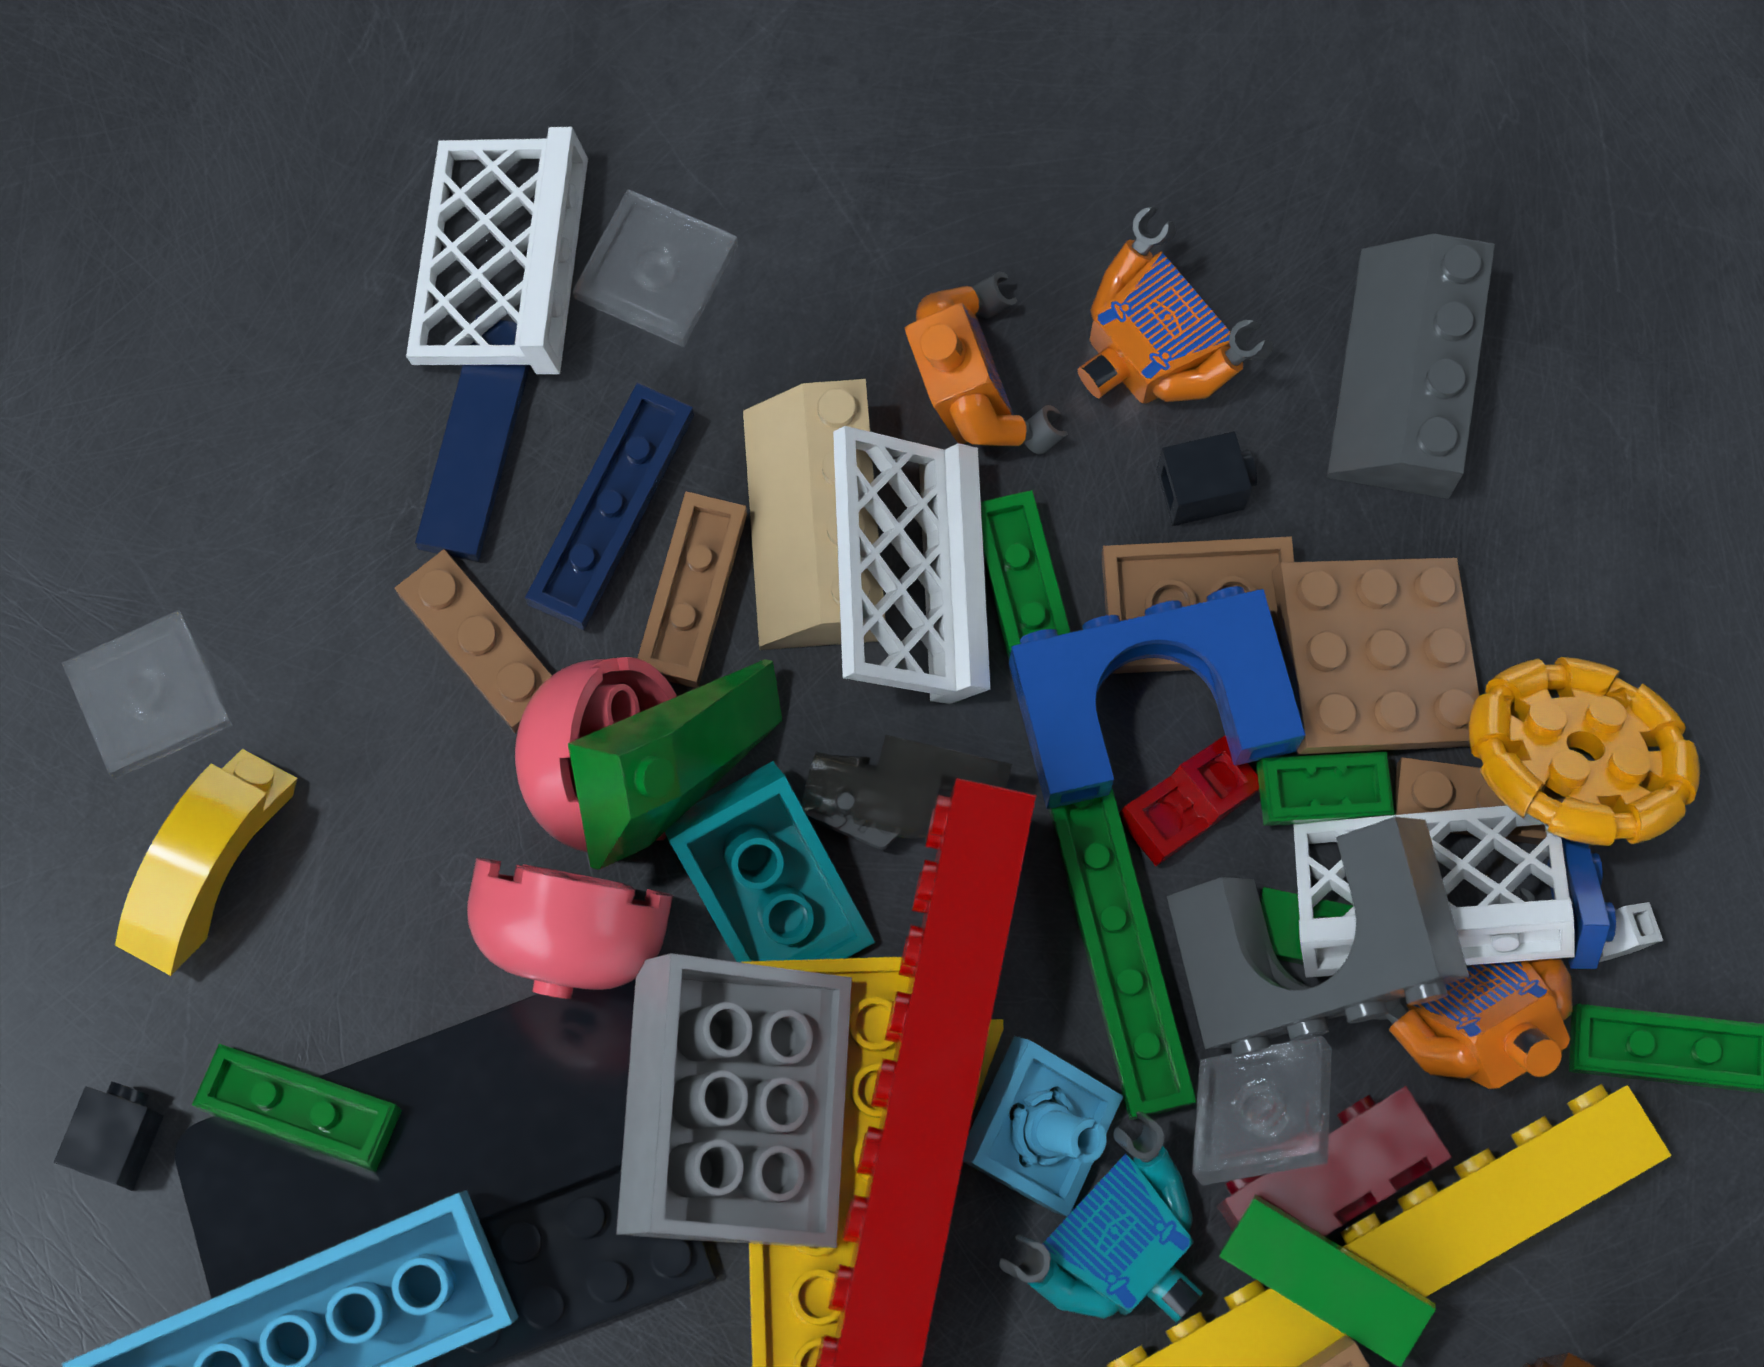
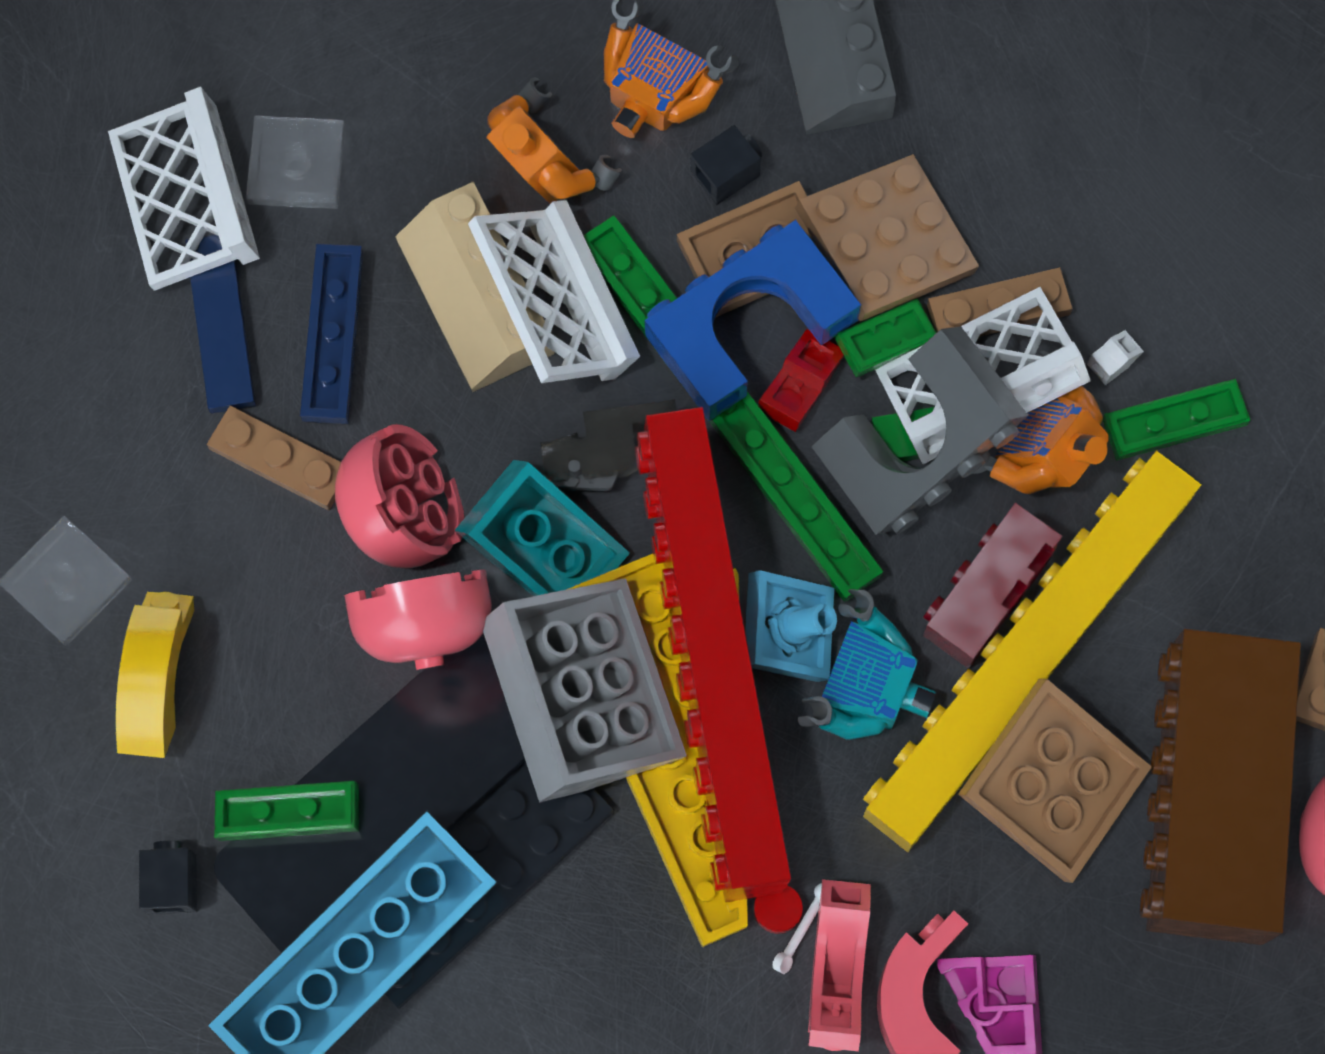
camera: 20 degrees left, 0 degrees up
(660, 762) = (442, 483): green wedge -> none
(692, 587) = (411, 365): medium nougat plate -> none
(1263, 1111) = (929, 558): clear plate -> none
(1327, 1280) = (1013, 647): green tile -> none
(1592, 916) = (1093, 350): blue plate -> none
(1618, 796) = (1011, 252): light orange plate -> none

